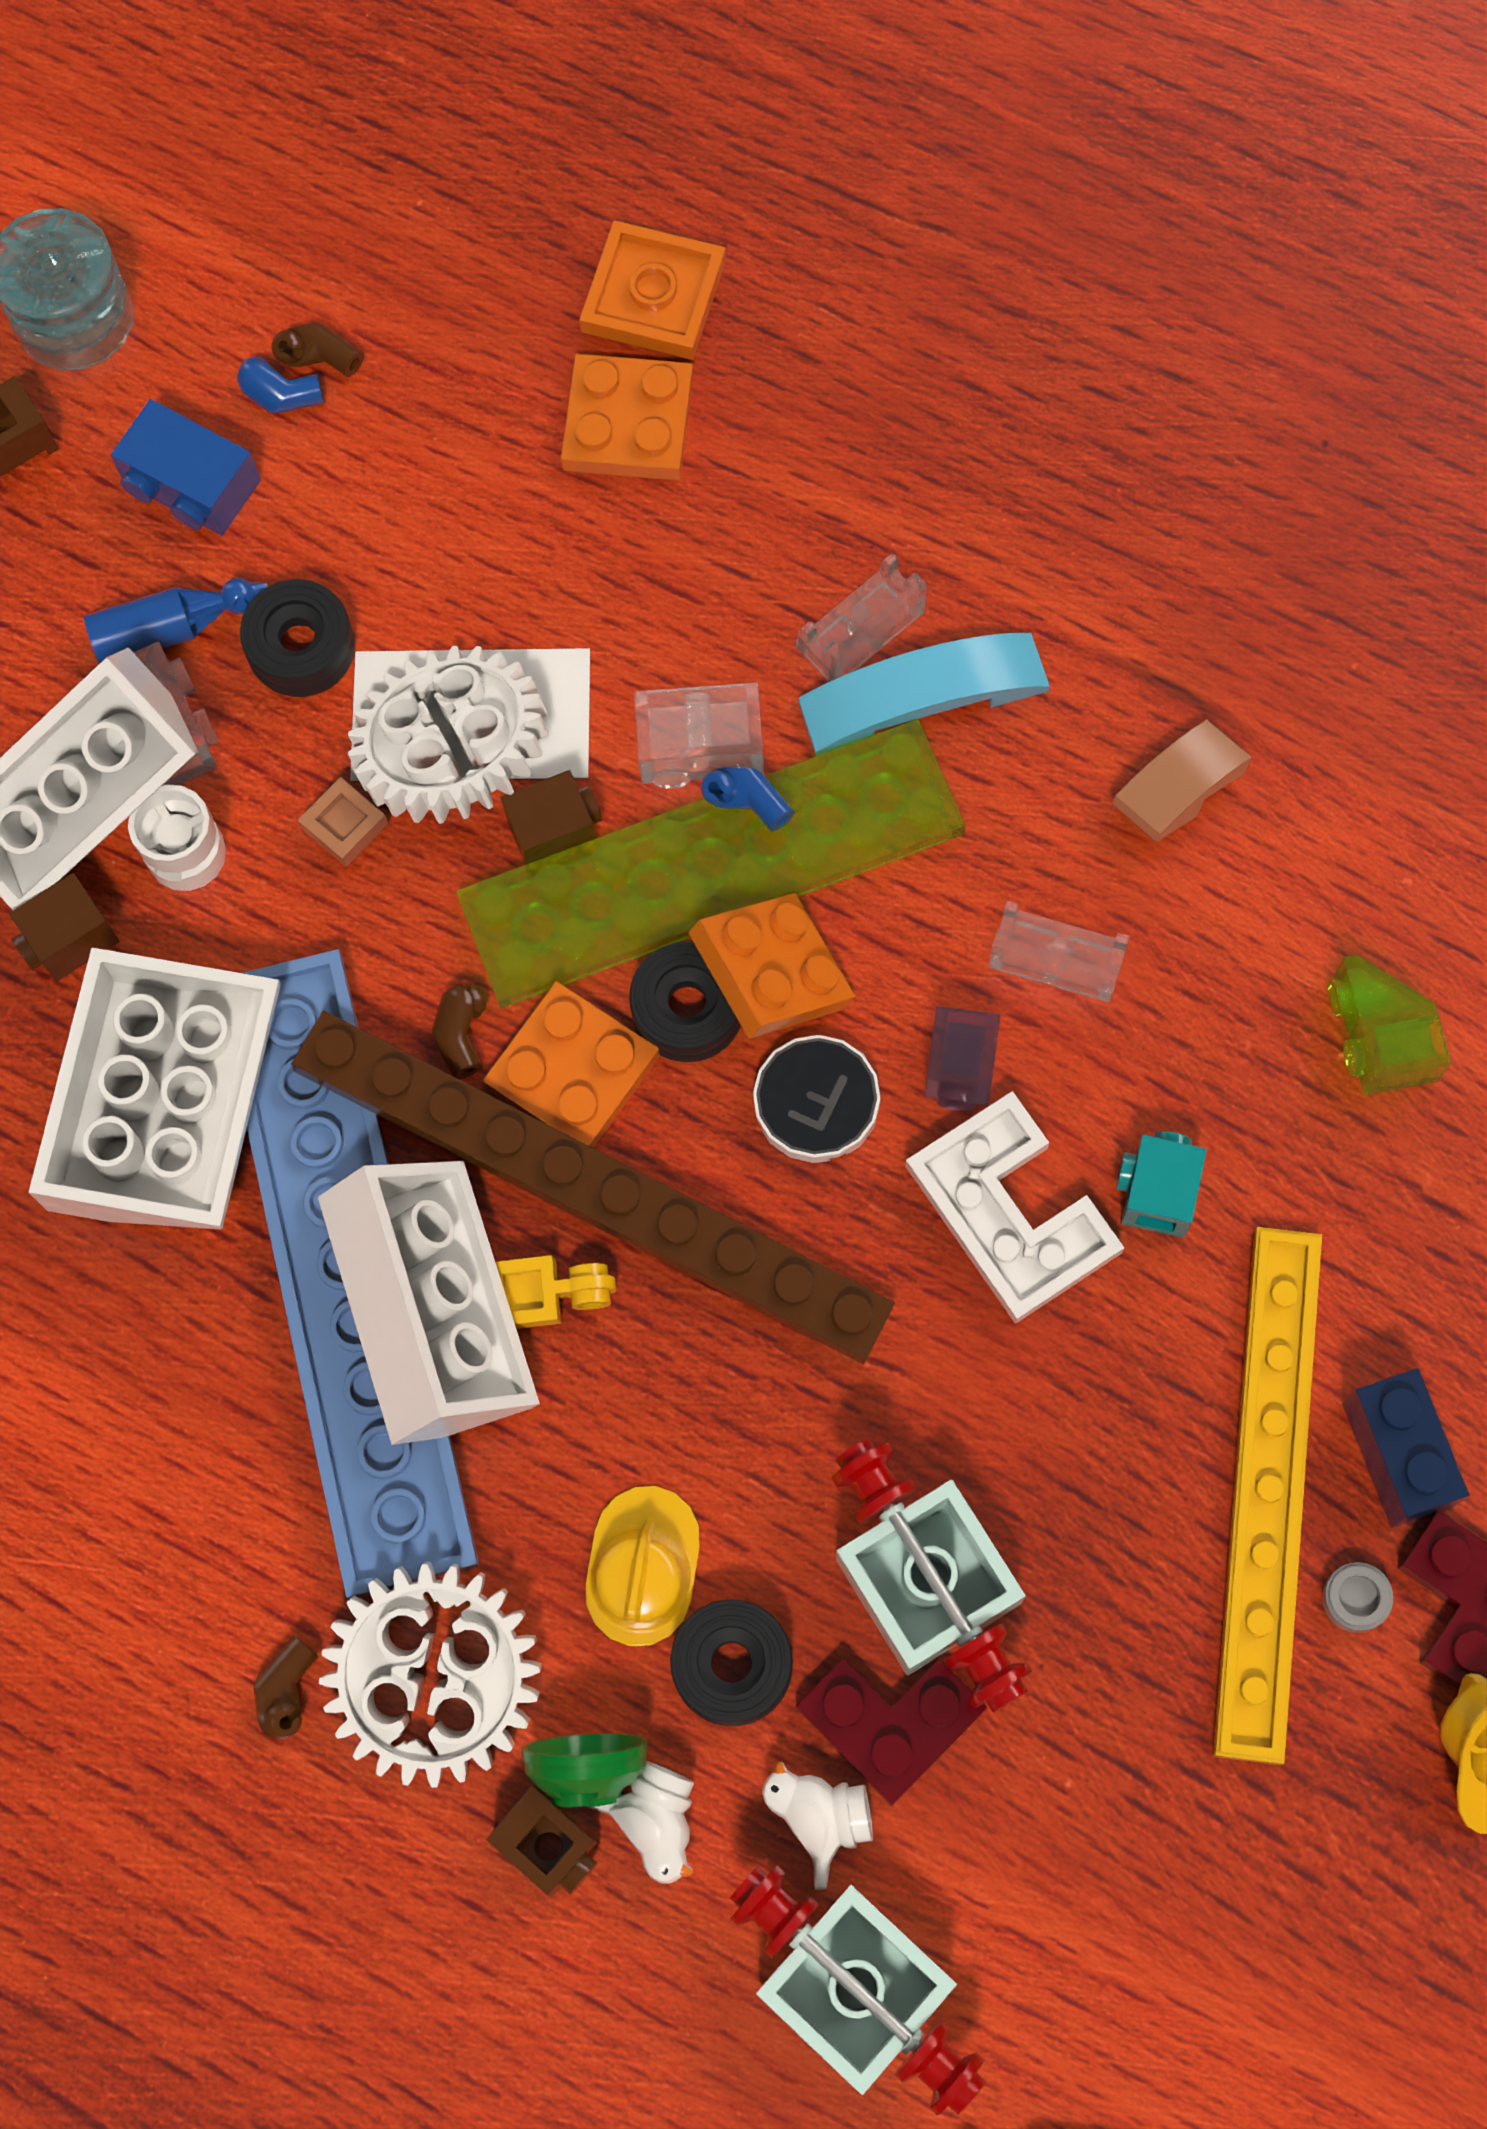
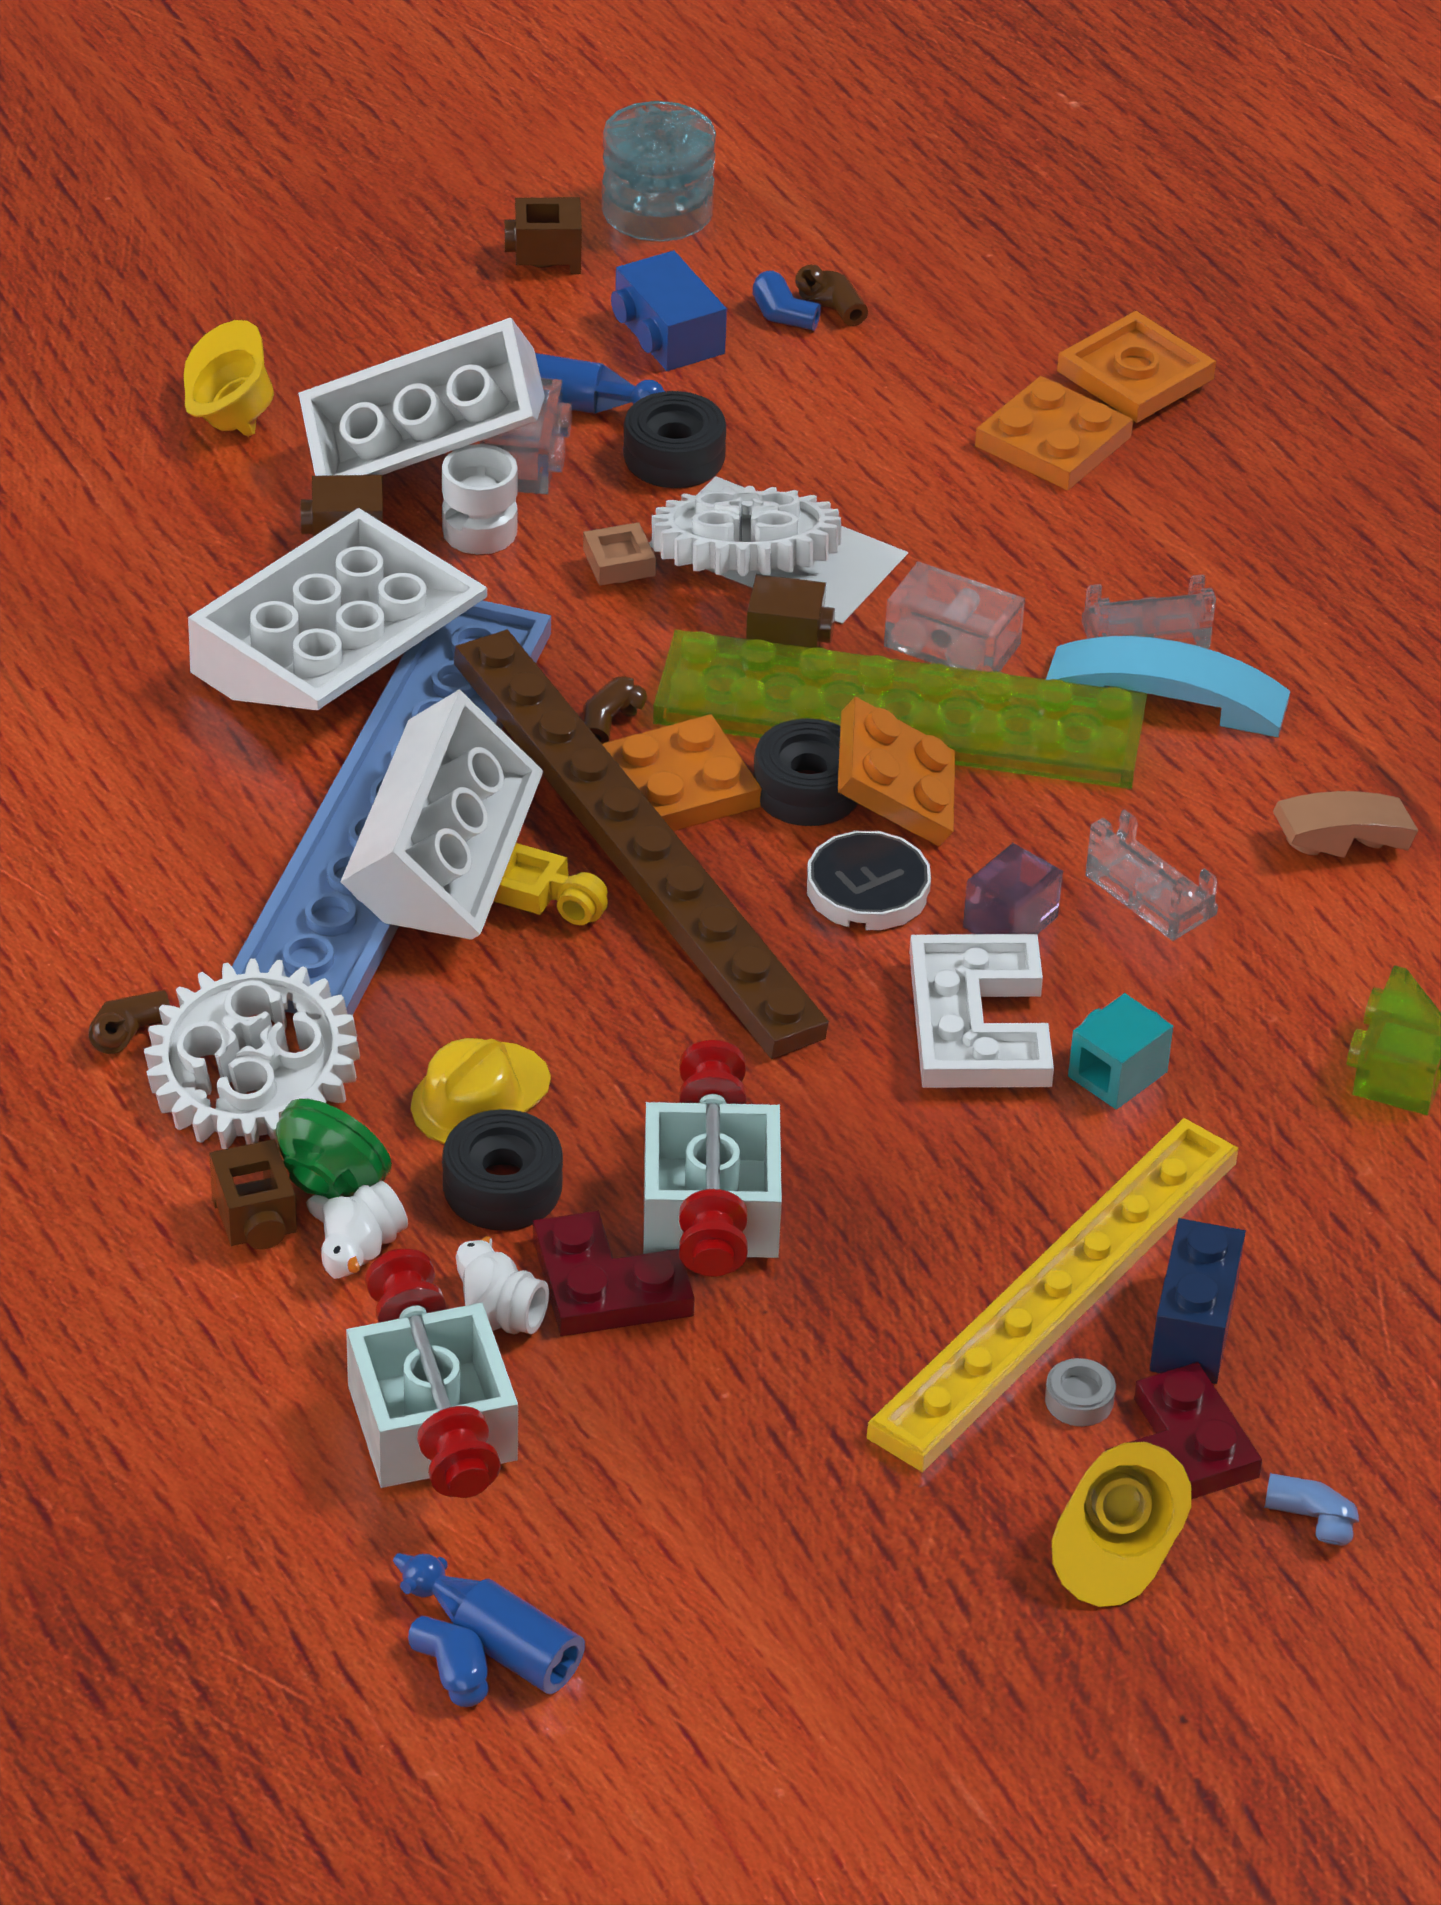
camera: 25 degrees right, 30 degrees down
(747, 790) = (961, 657): blue arm -> none

